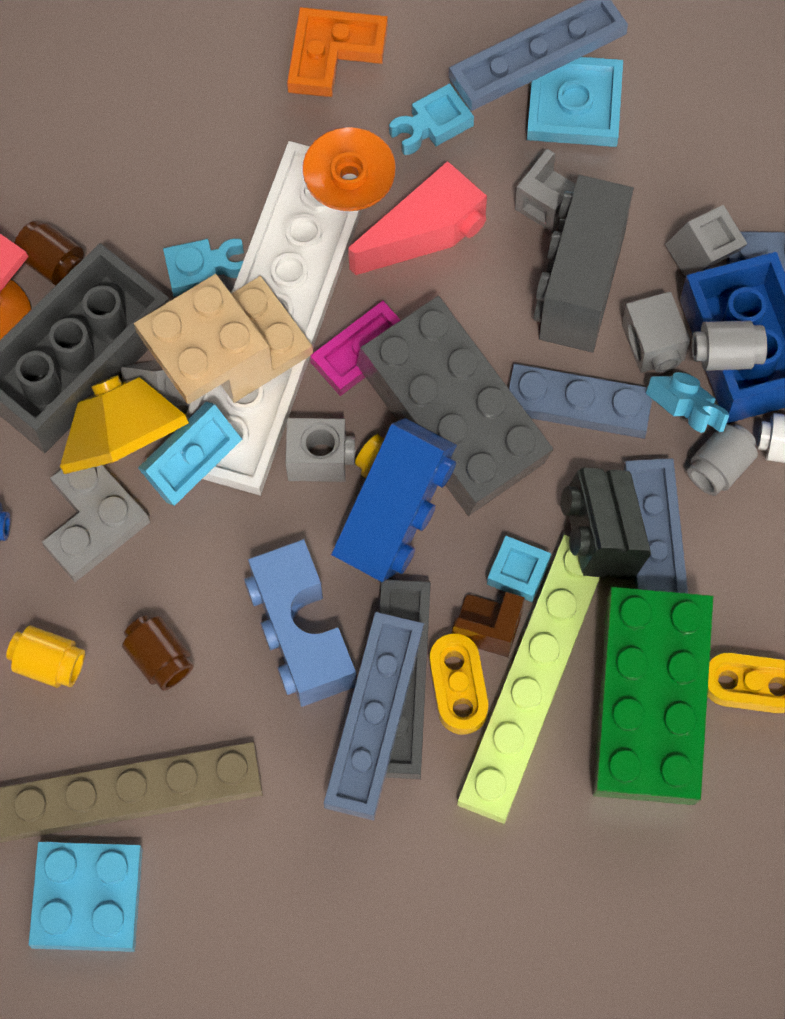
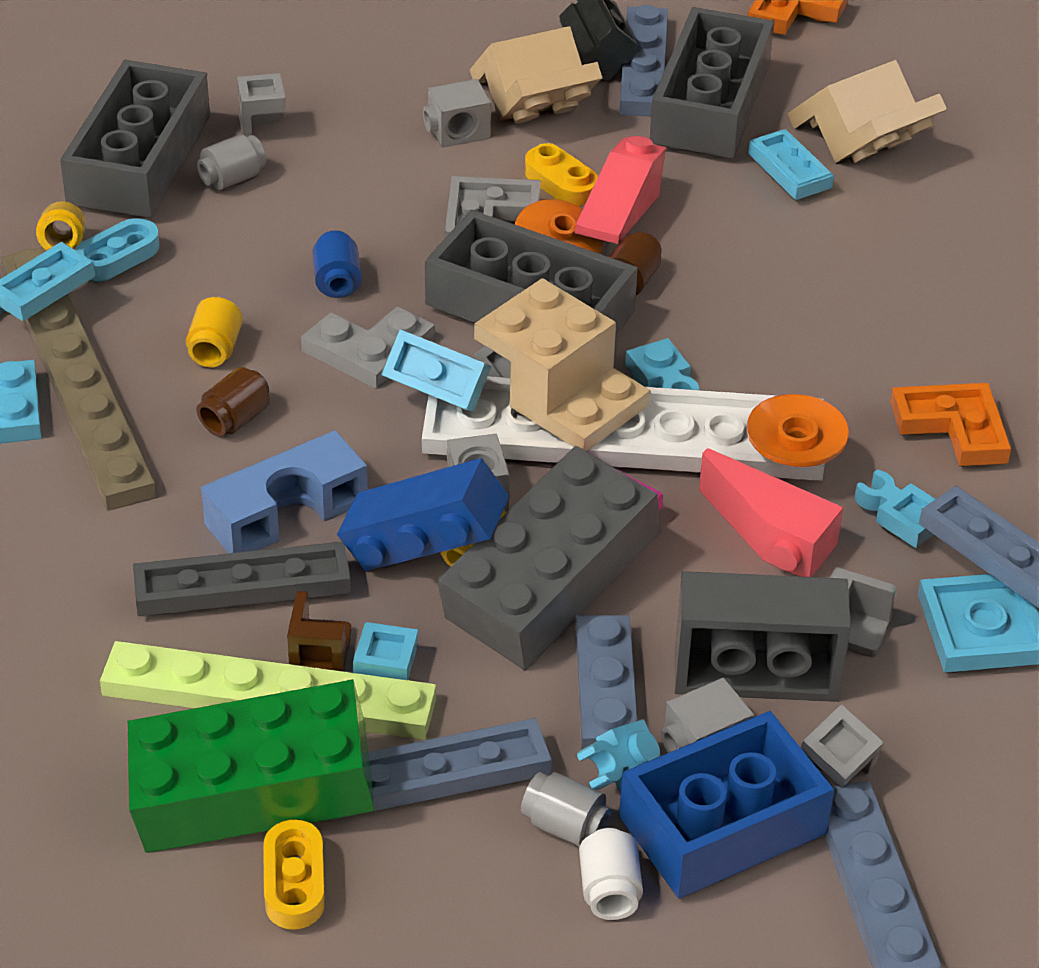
camera: 75 degrees right, 25 degrees down
(117, 423) = (445, 310): yellow slope -> none
(374, 716) = (186, 544): sand blue plate -> none
(459, 685) = (242, 623): yellow plate -> none
(605, 523) = (446, 696): pearl dark grey brick -> none
(730, 345) = (680, 741): light grey brick -> none

